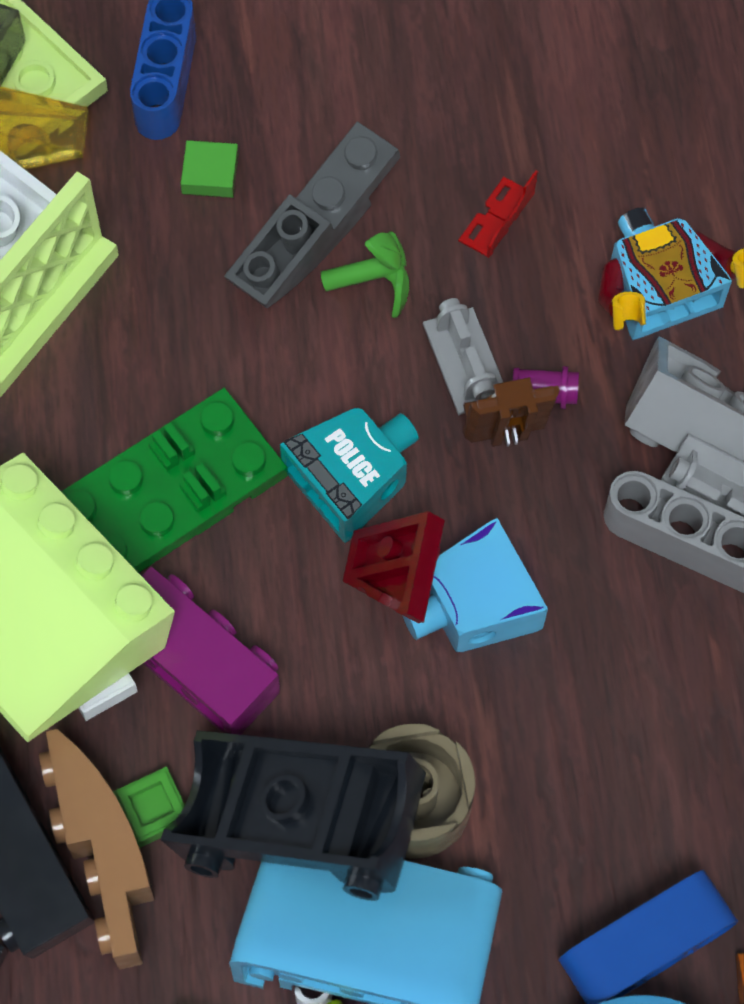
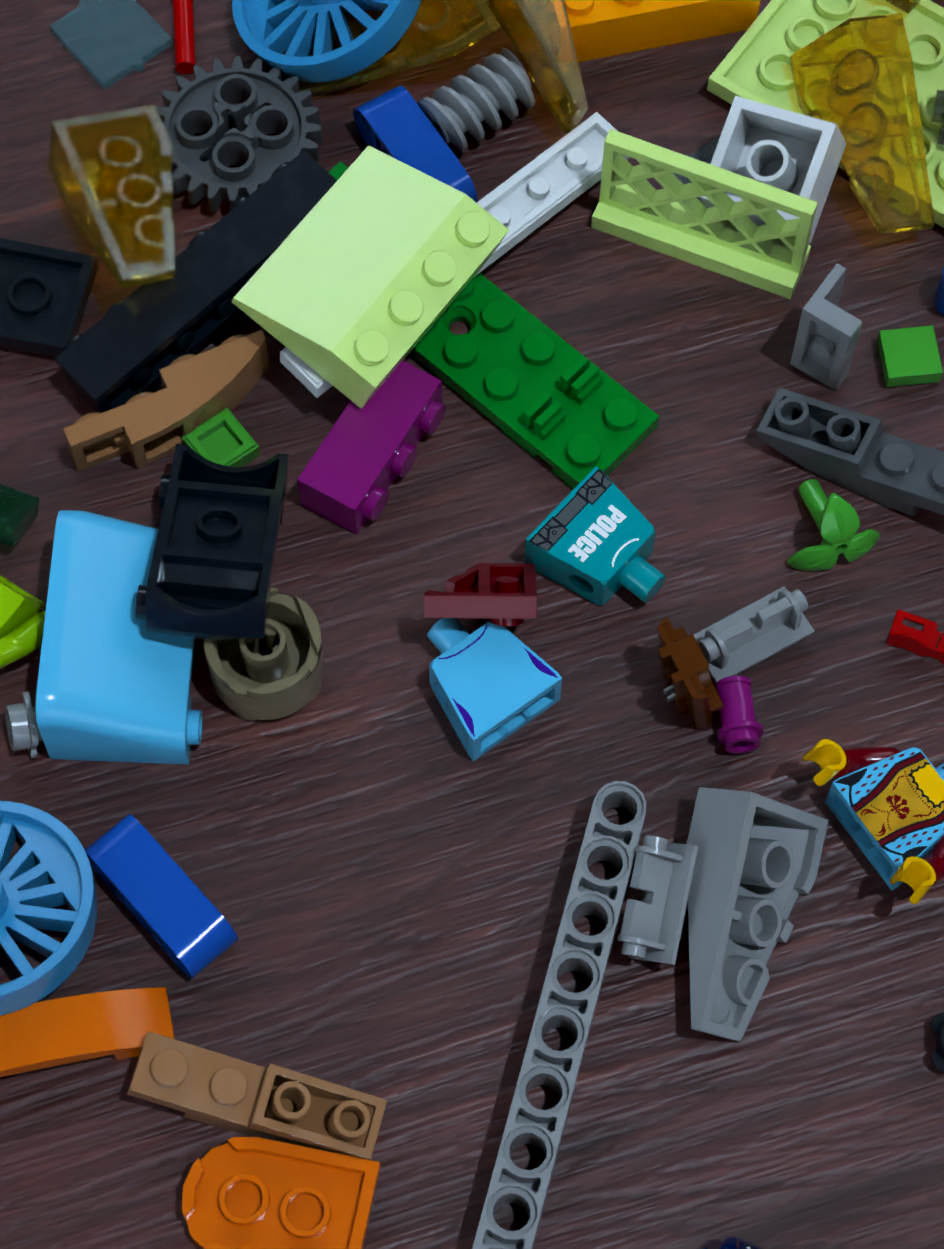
camera: 80 degrees right, 0 degrees up
(185, 223) = (826, 334): none -> light grey panel

